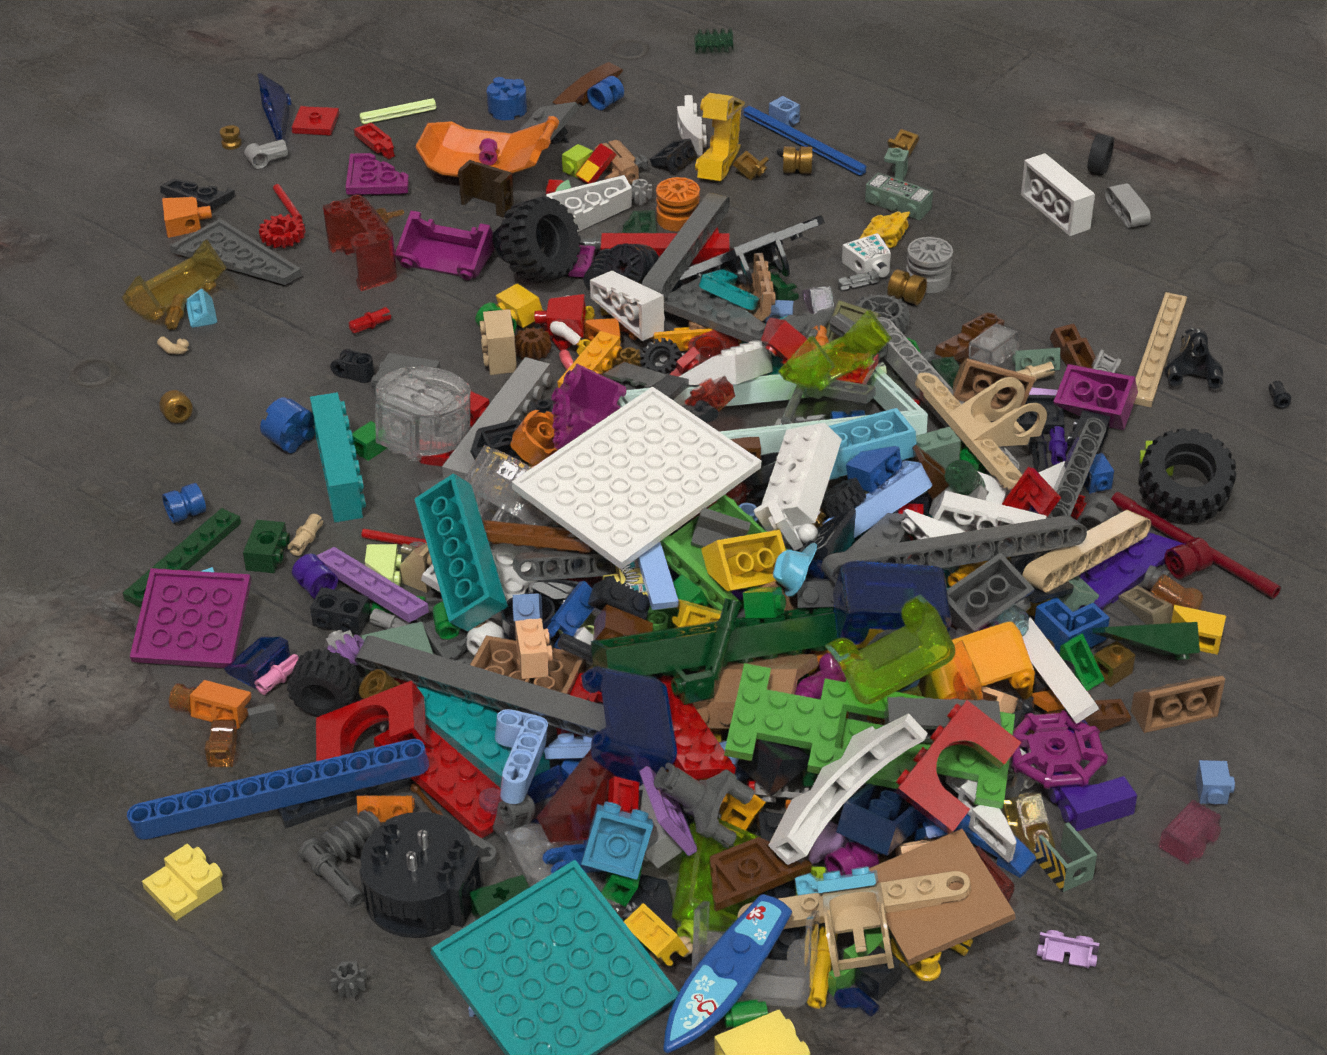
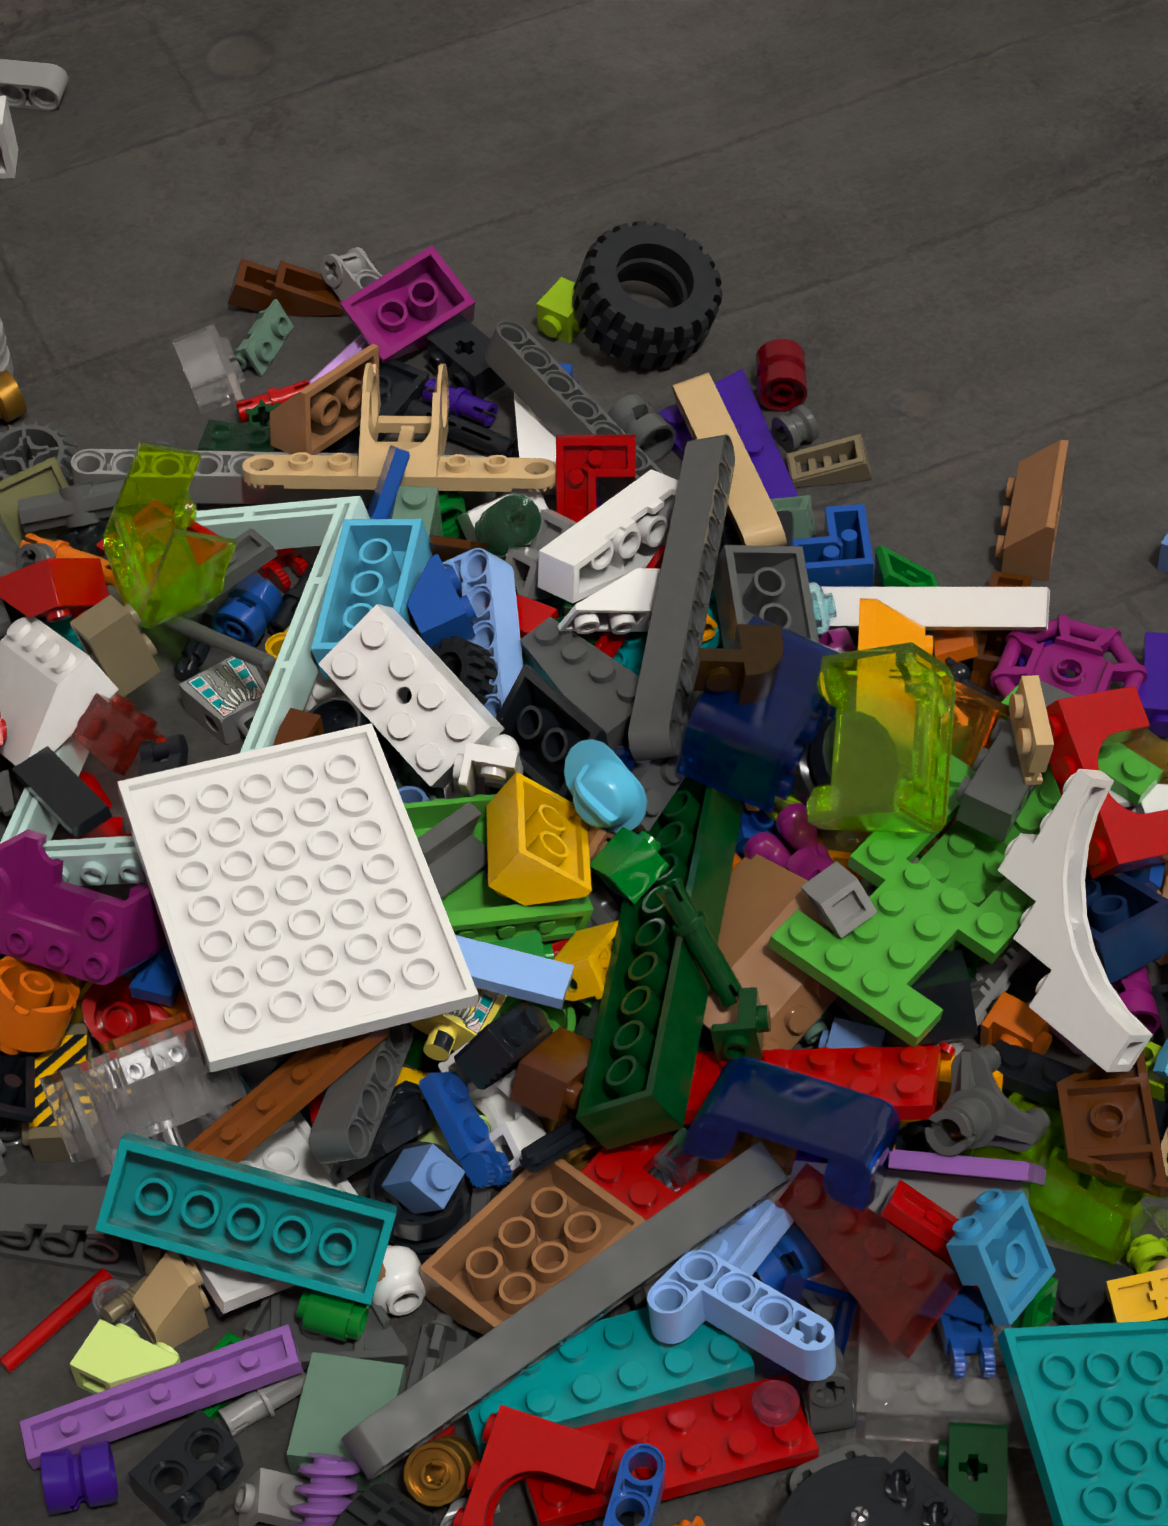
camera: 60 degrees left, 10 degrees up
(415, 788) = (729, 1501): reddish brown hinge -> none
(532, 648) = (517, 1209): light nougat brick -> none
(759, 370) = (116, 645): none -> dark tan brick
(784, 678) = (839, 899): none -> light grey brick
(890, 570) = (746, 668): none -> dark brown brick
(937, 704) = (1031, 729): none -> tan plate
(953, 419) = (388, 483): none -> blue tile
(959, 345) = (163, 386): reddish brown slope -> none
(1039, 371) = (289, 357): tan pin -> none
(1115, 662) = (923, 543): pearl gold brick -> none
(1159, 348) = (326, 196): tan tile -> none
(1164, 639) = (912, 474): dark green wedge -> none
(1176, 594) = (846, 420): clear orange piece -> none
(1194, 359) = (403, 174): black wheel -> none
(1209, 626) = (914, 430): yellow slope -> none
(1259, 582) = (859, 332): dark red piece -> none
(1280, 397) = (532, 134): black pin -> none

